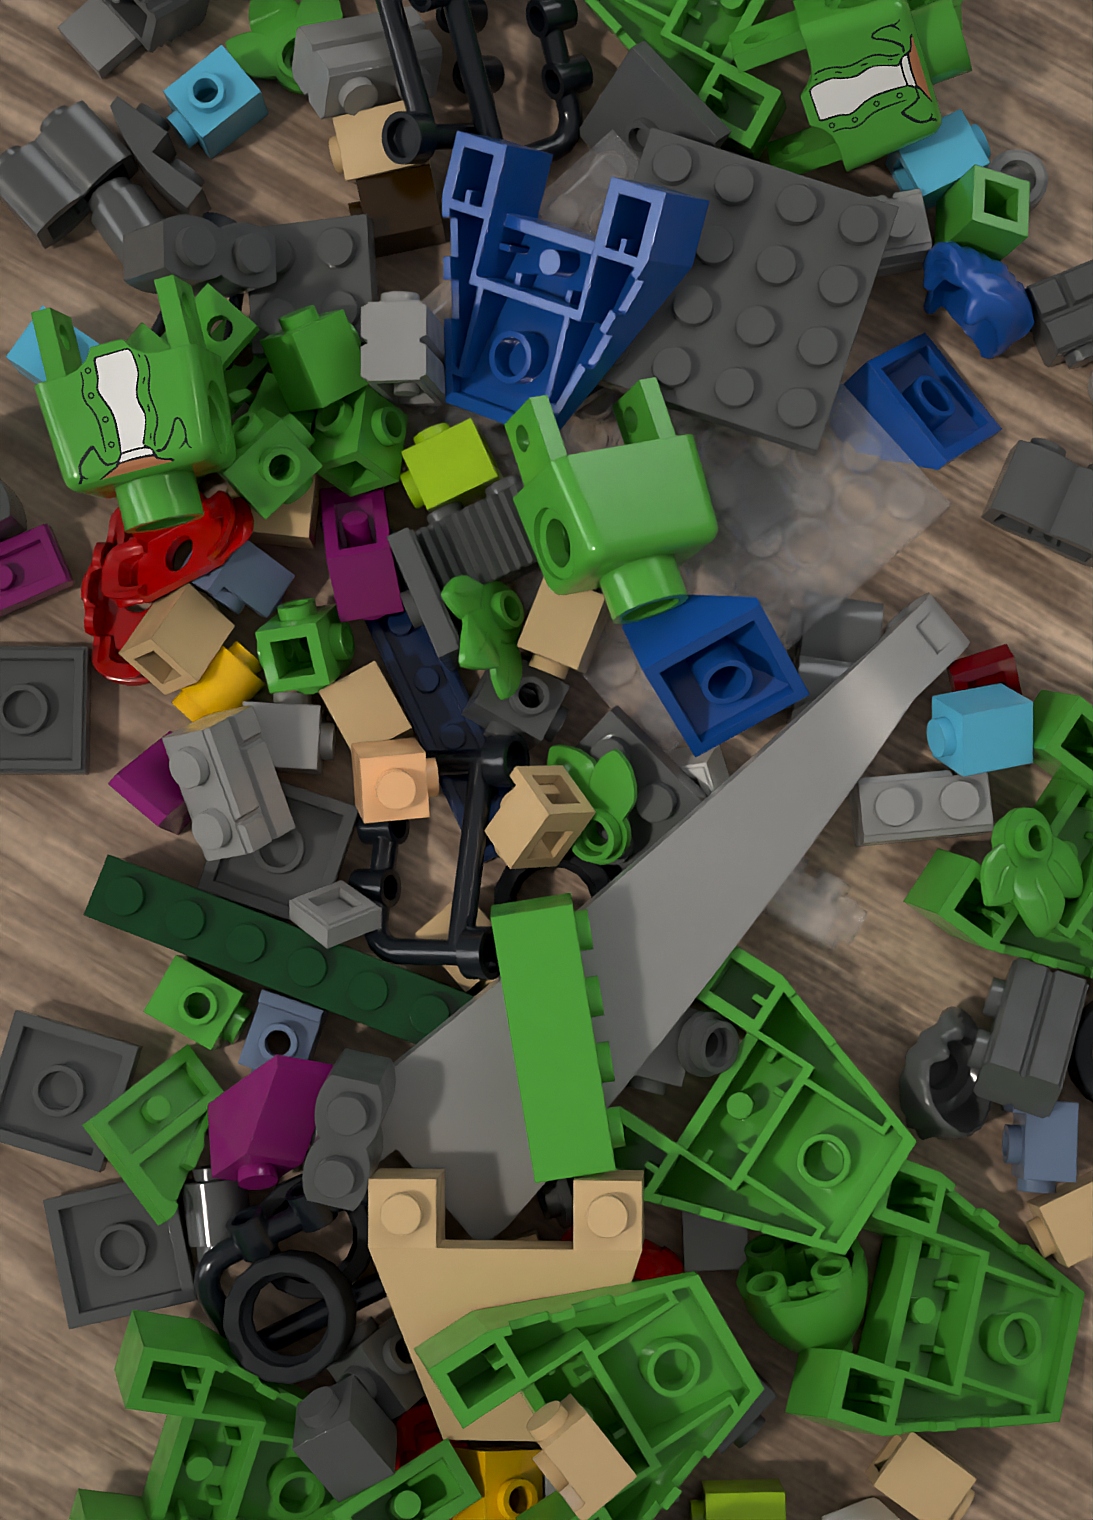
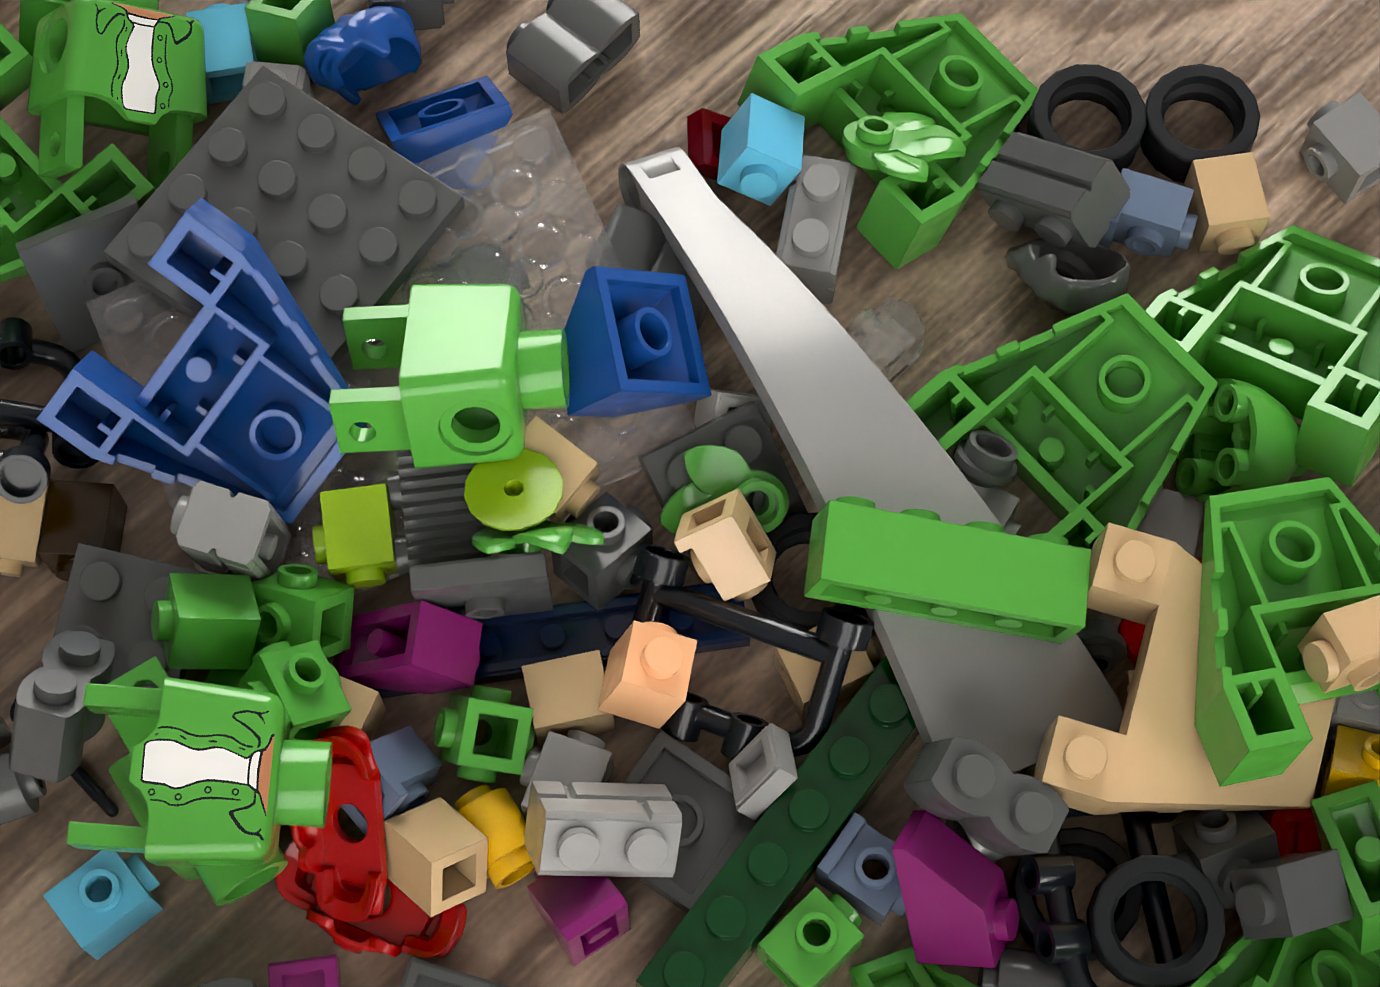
camera: 75 degrees left, 15 degrees down
(516, 601) = (514, 491): none -> lime piece

